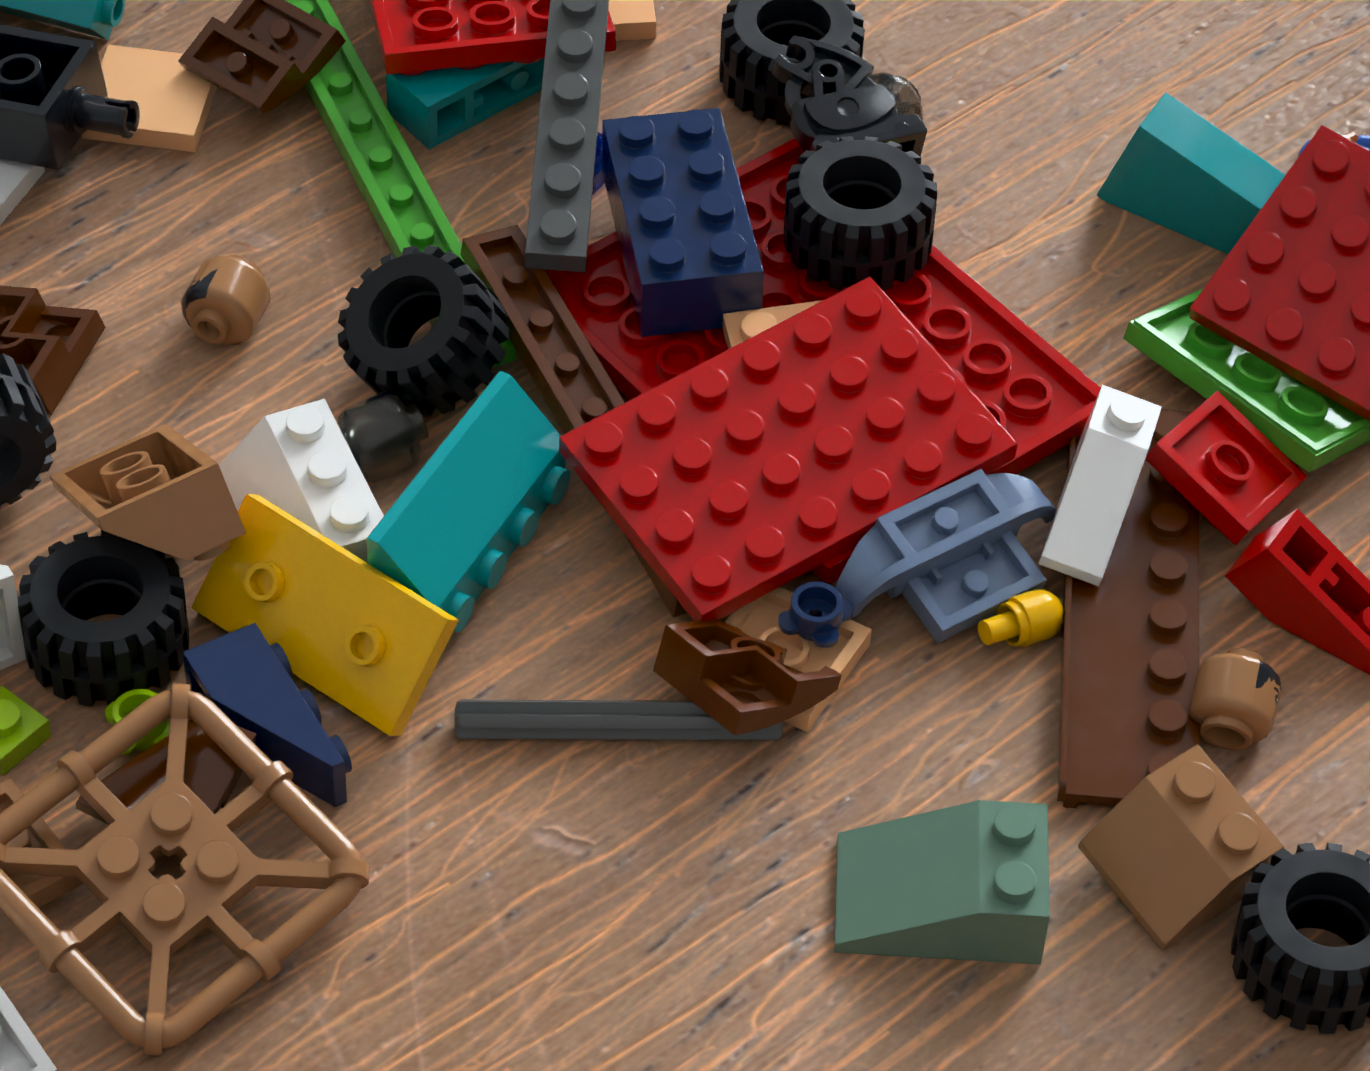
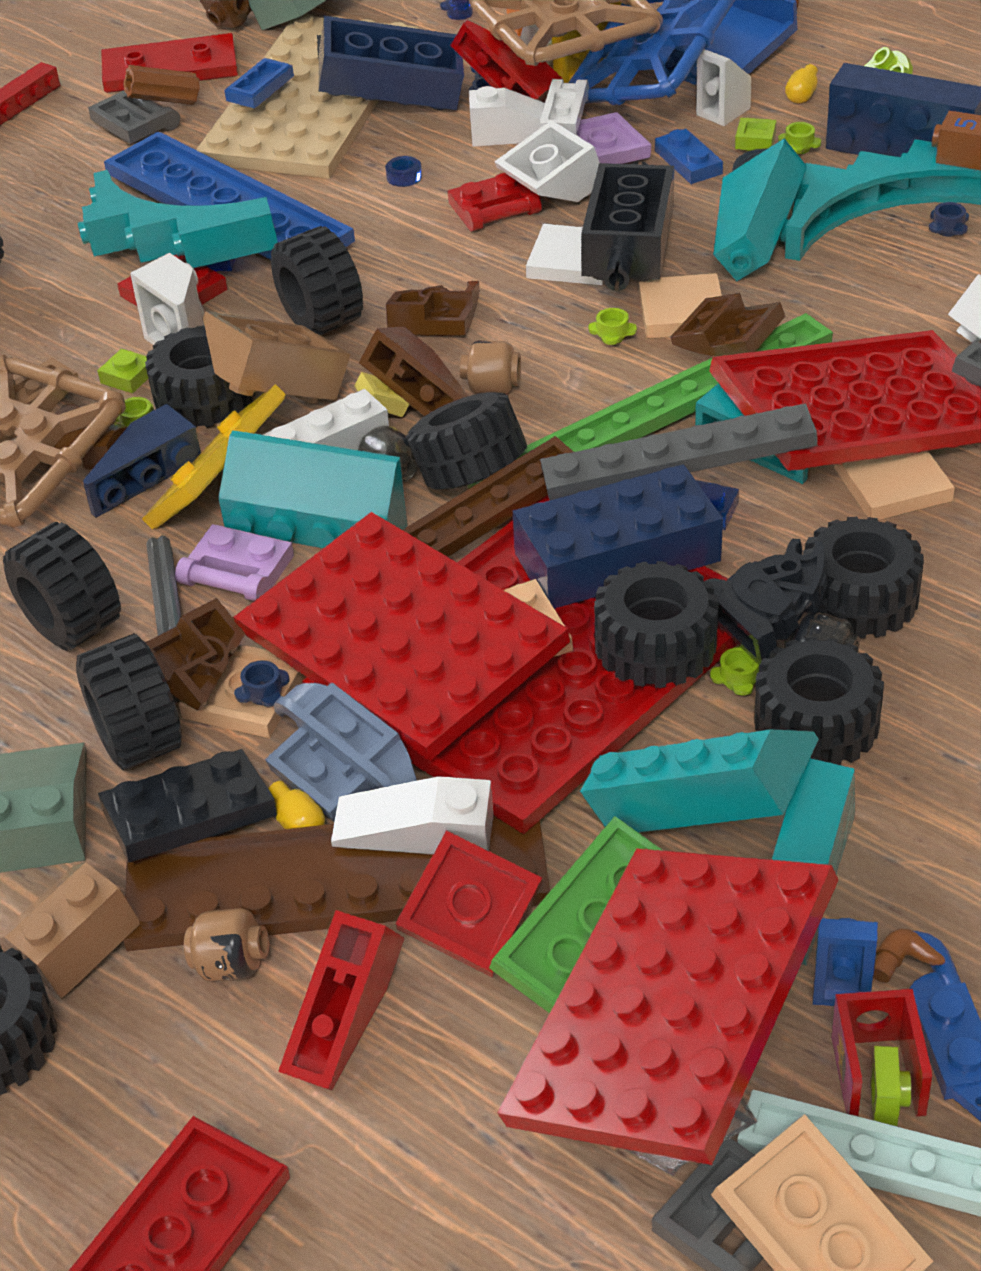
camera: 85 degrees right, 5 degrees down
(173, 170) = (612, 326): none -> lime plate
(223, 373) = (411, 369): none -> reddish brown slope
(228, 425) = (387, 397): none -> light yellow plate
(516, 625) = (235, 562): none -> lavender plate
(586, 792) = (62, 585): none -> black tyre
(846, 731) = (129, 701): none -> black tyre
(988, 131) = (821, 691): none -> black tyre
(1001, 716) = (186, 804): none -> black plate
(1117, 224) = (700, 780): none -> teal slope

